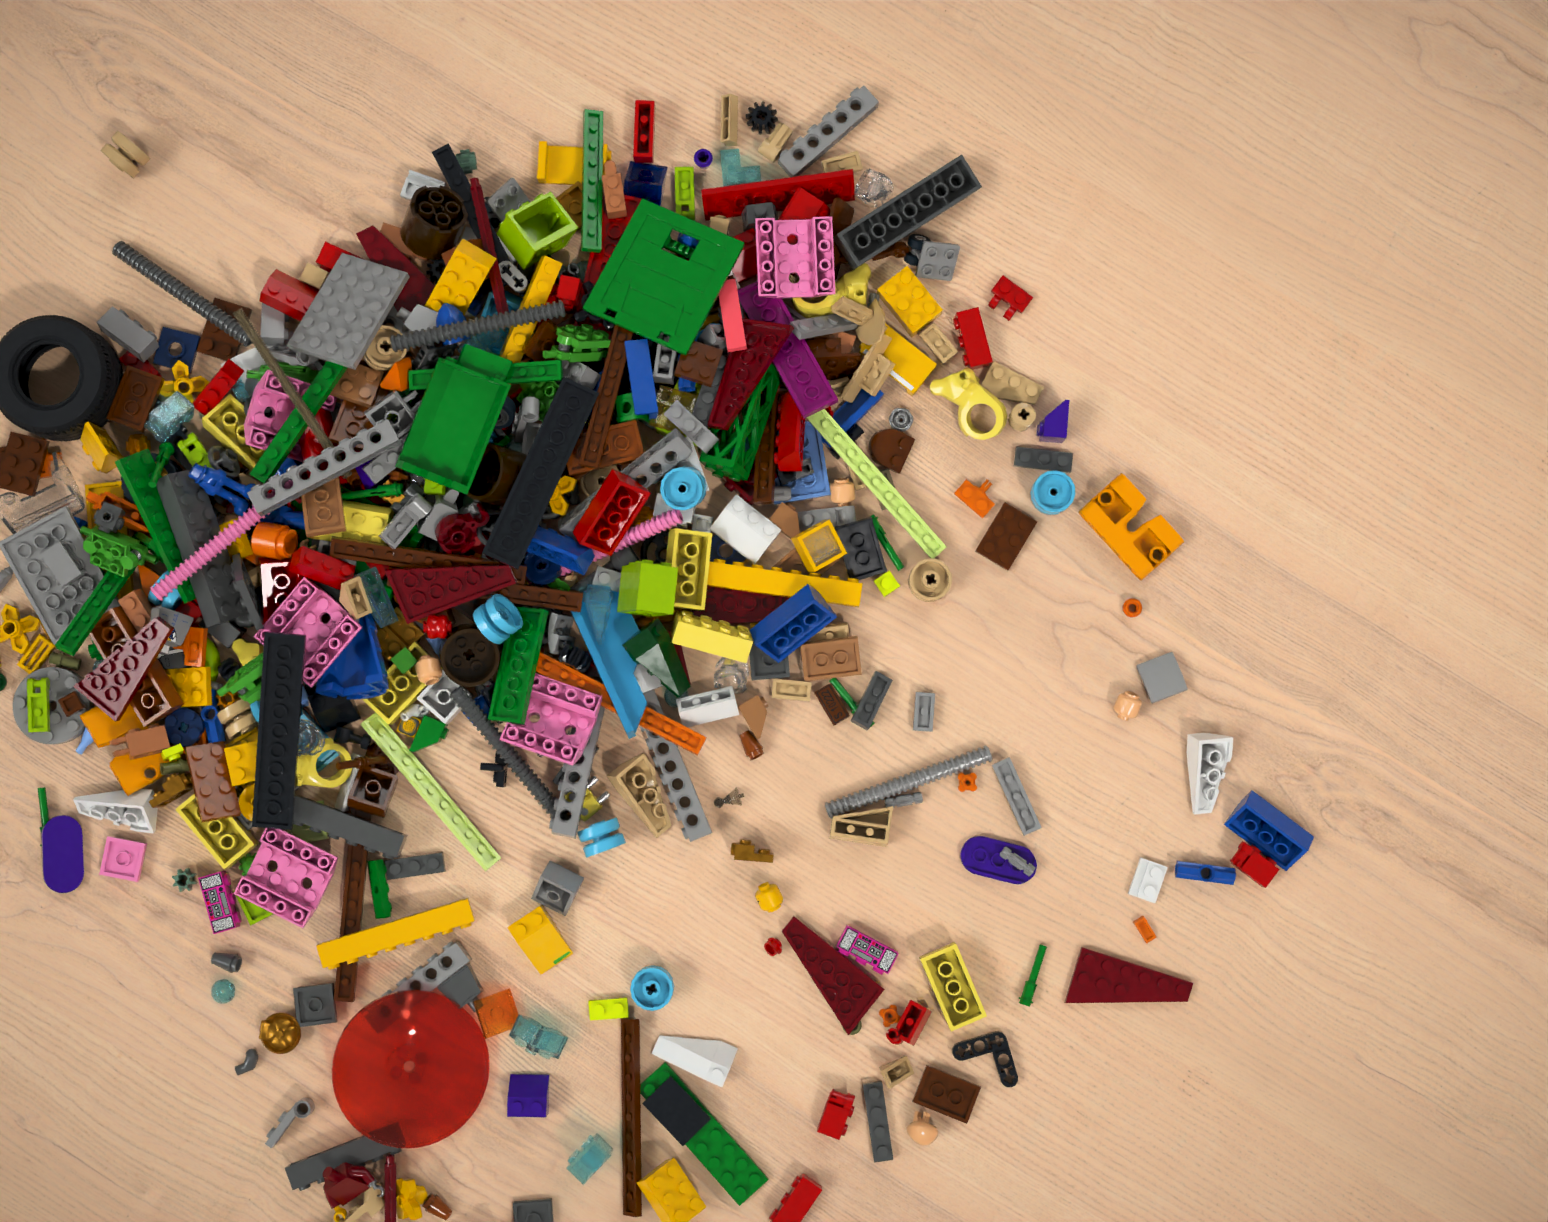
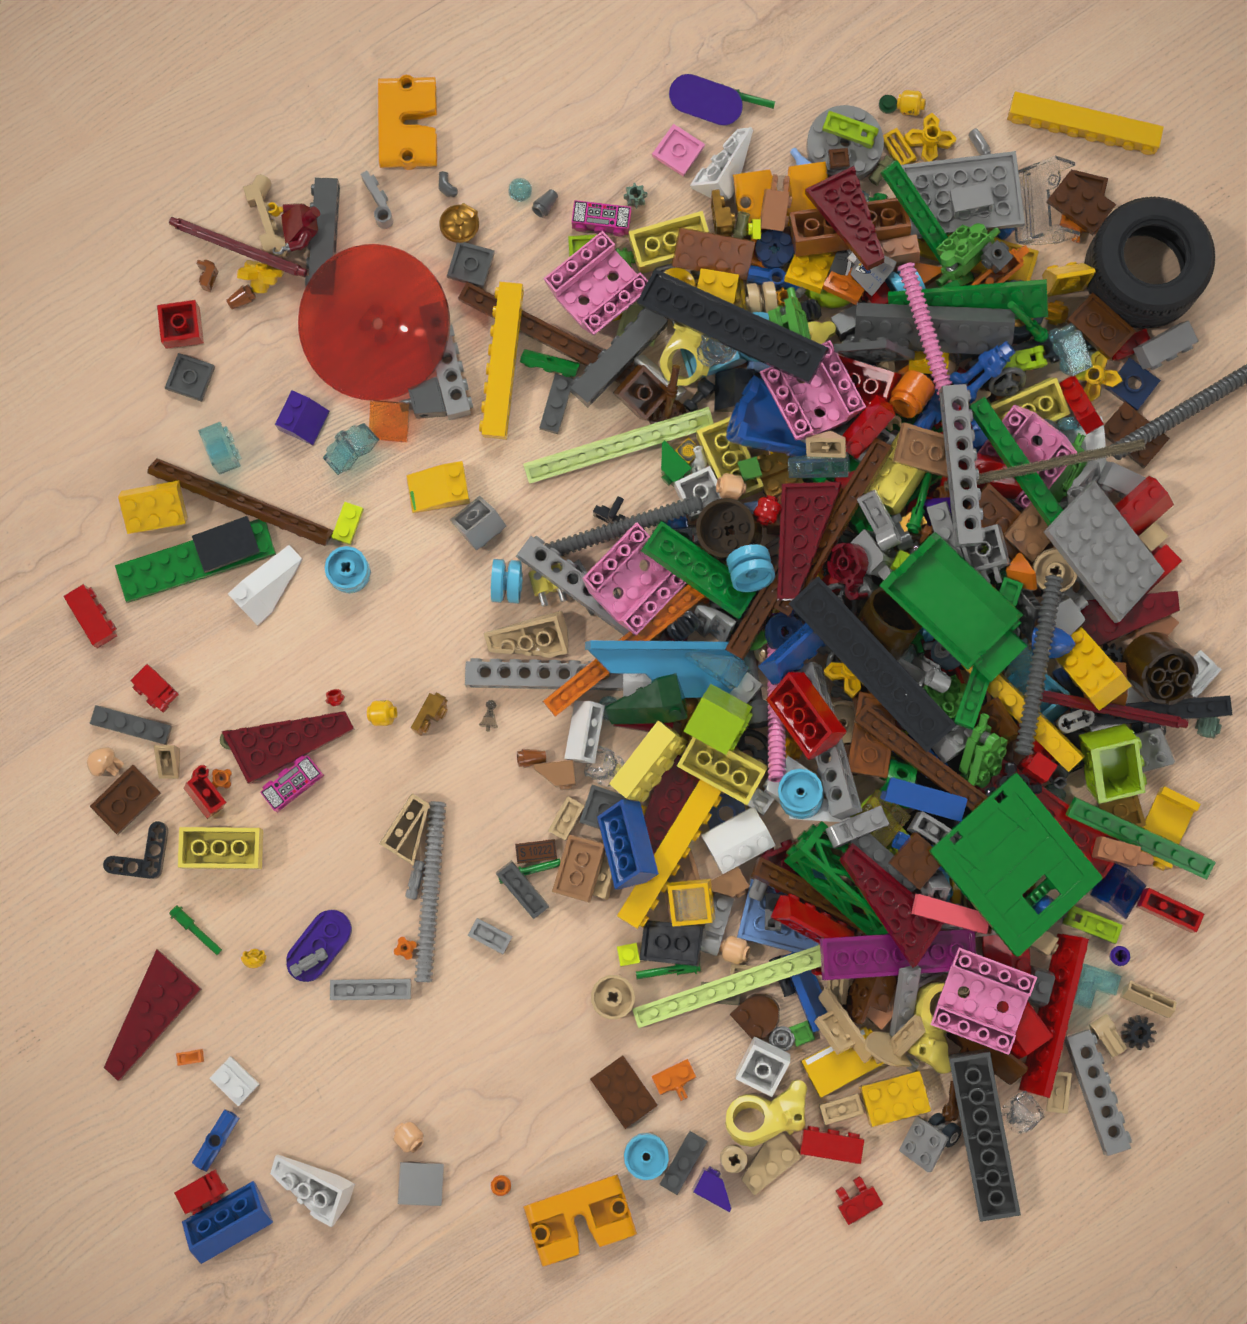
camera: 115 degrees right, 5 degrees down
(190, 1145) = (396, 107): none -> light orange connector
(888, 404) = (802, 1033): none -> bright green tile
(932, 424) = (763, 1066): none -> white brick
(1035, 912) = (253, 958): none -> yellow plate

